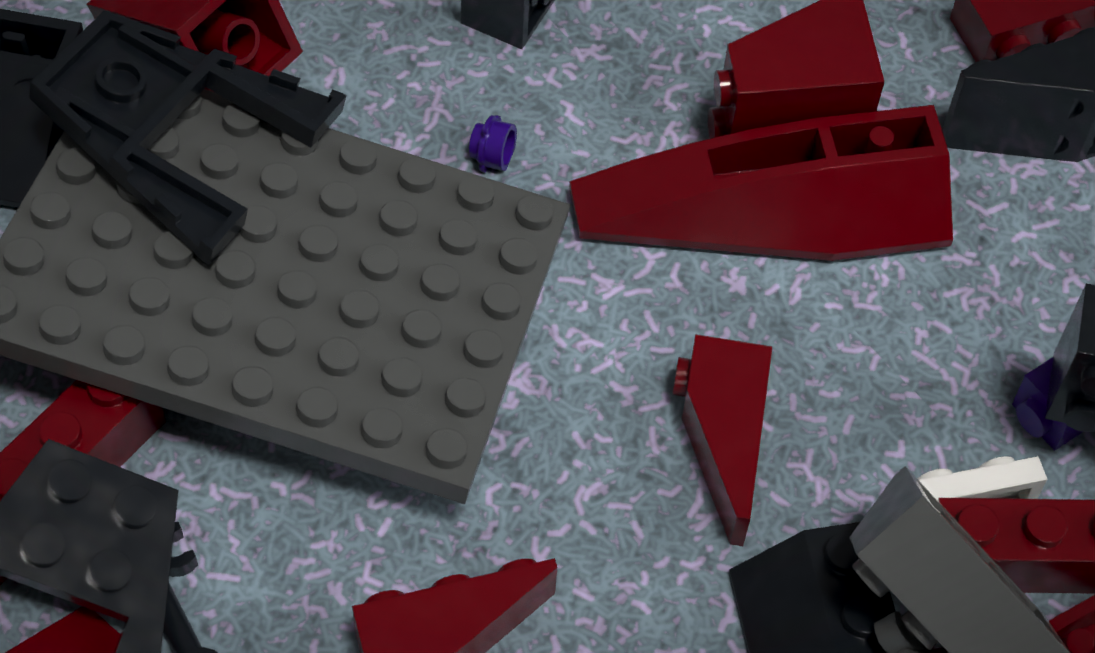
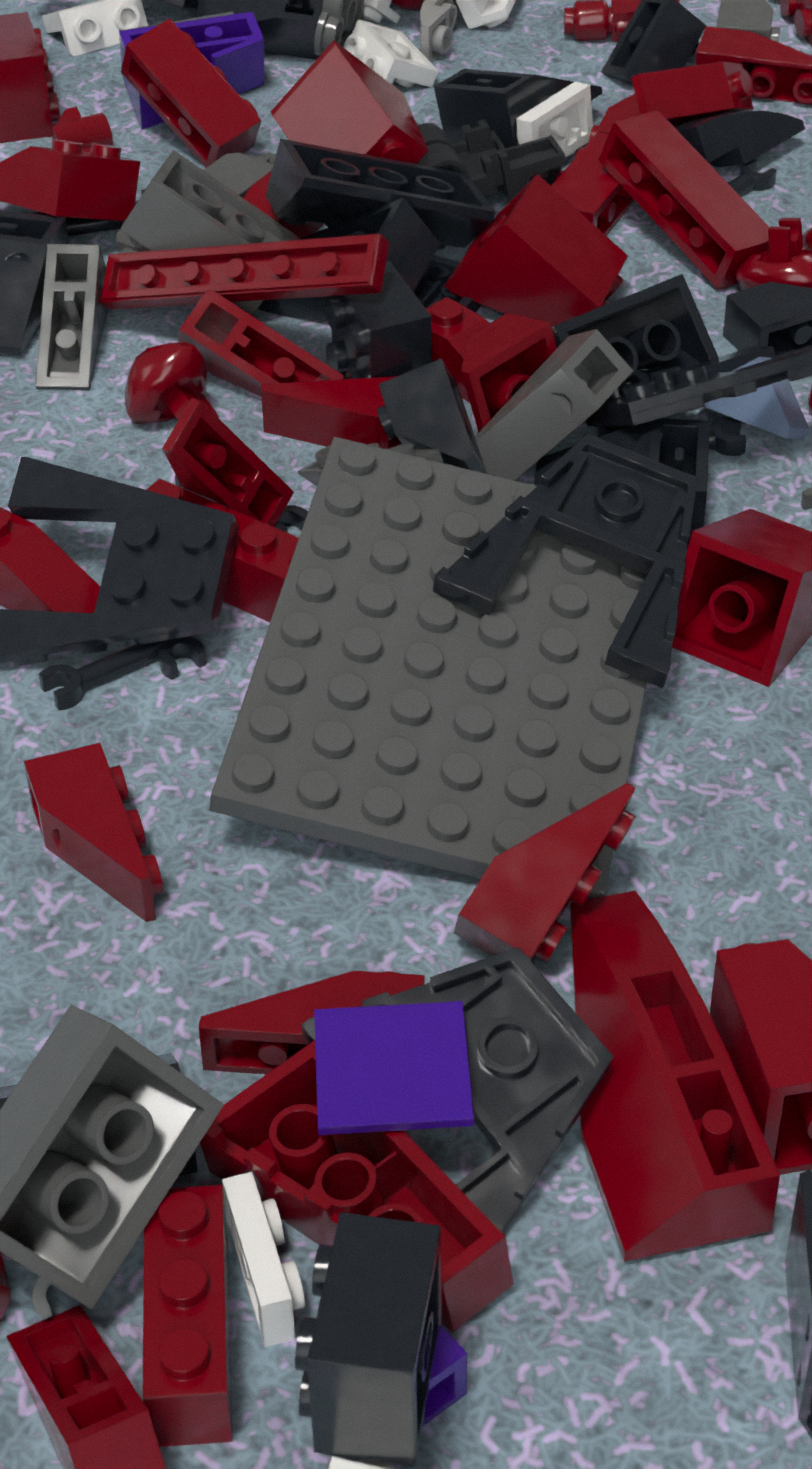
camera: 90 degrees right, 15 degrees down
(493, 143) = (660, 826): dark purple plate -> none
(585, 232) = (538, 878): none -> dark red slope
(791, 281) = (527, 1070): none -> black wing
(834, 350) = (392, 1068): none -> dark purple piece
(907, 405) = (374, 1174): none -> dark red wedge

